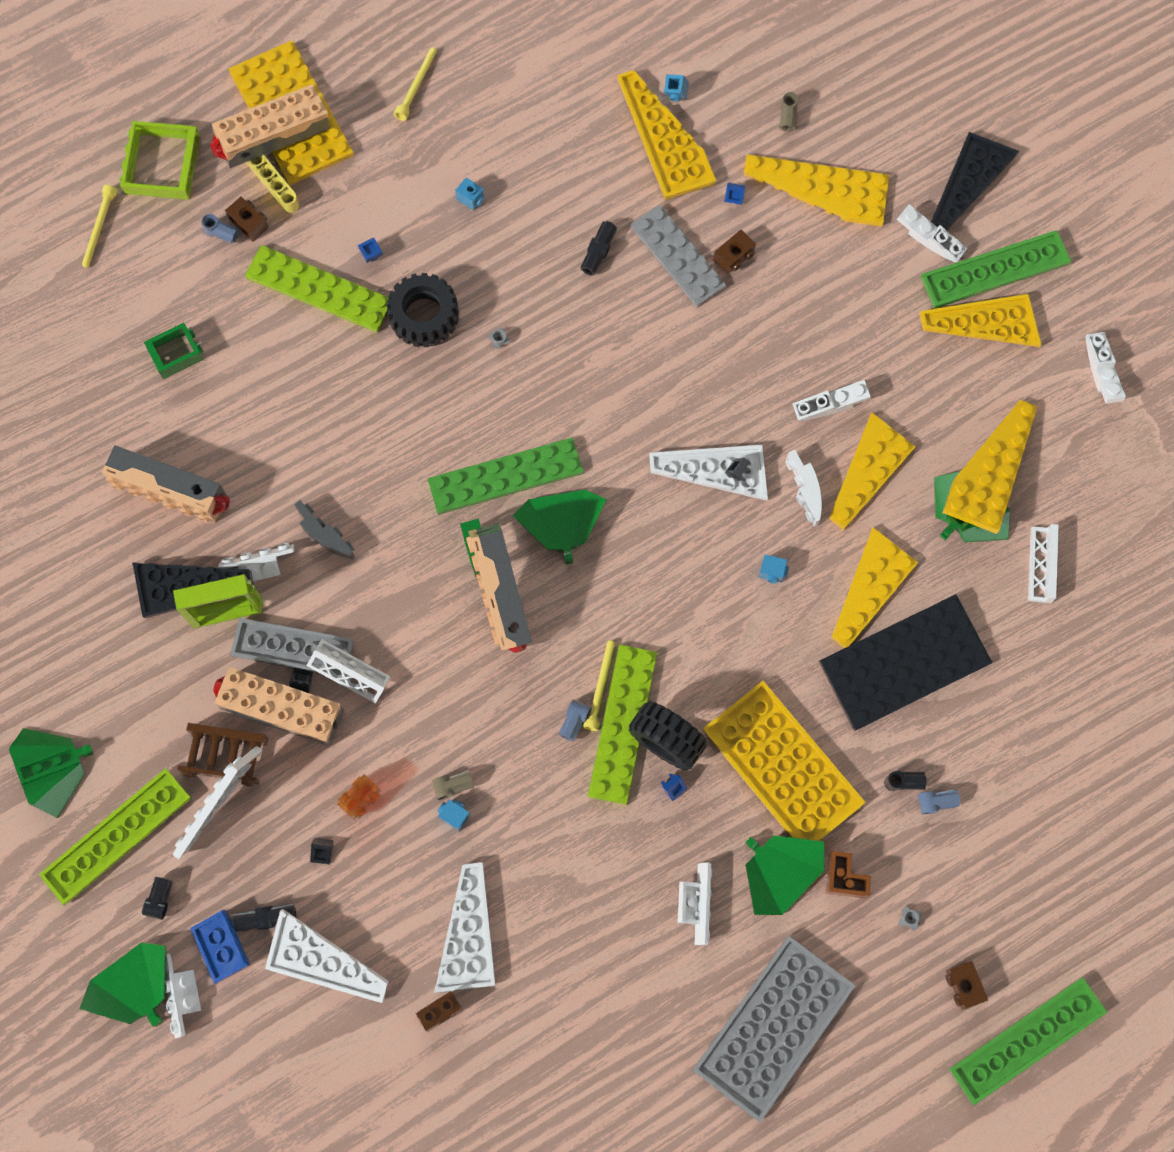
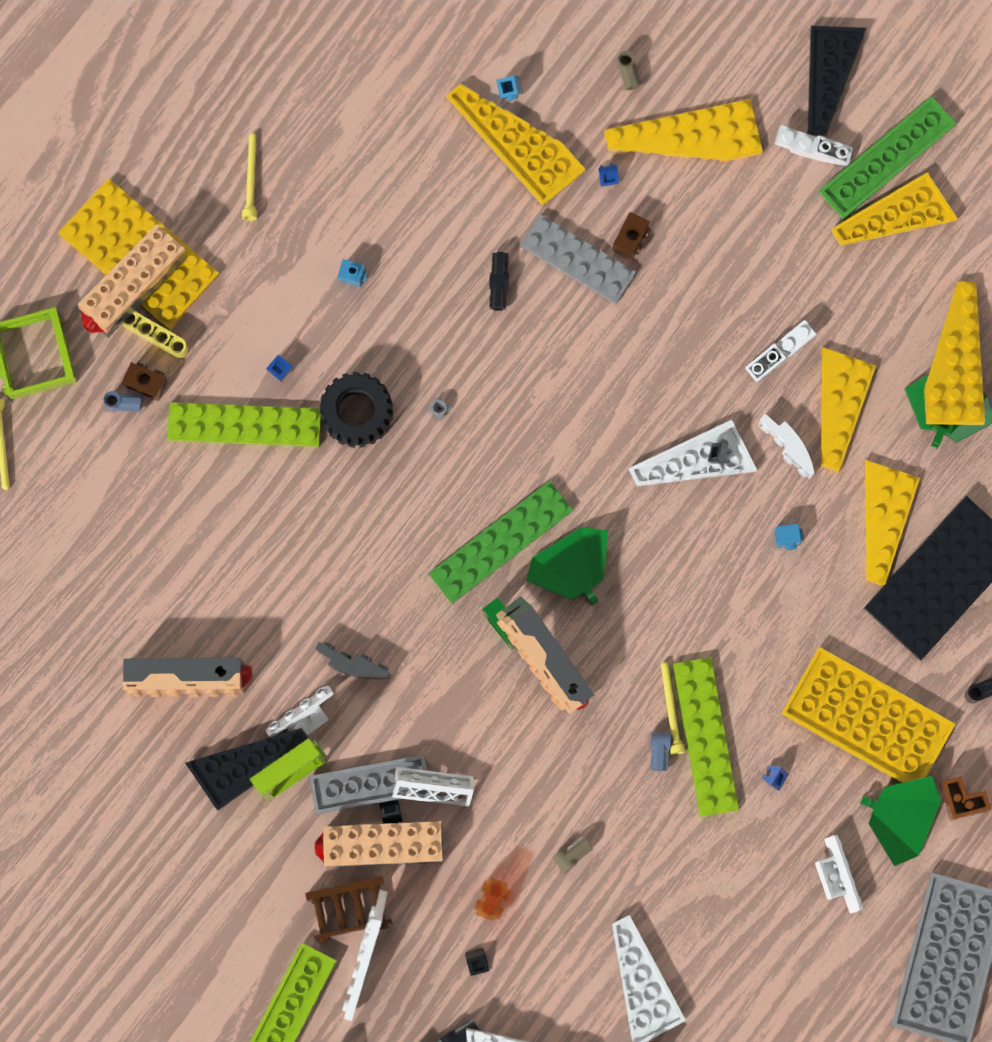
camera: 15 degrees left, 5 degrees up
(47, 768) = (191, 984): green panel -> none
(180, 363) = (142, 554): green window -> none
(453, 814) = (584, 880): dark azure brick -> none
(667, 735) = (754, 734): black tyre -> none

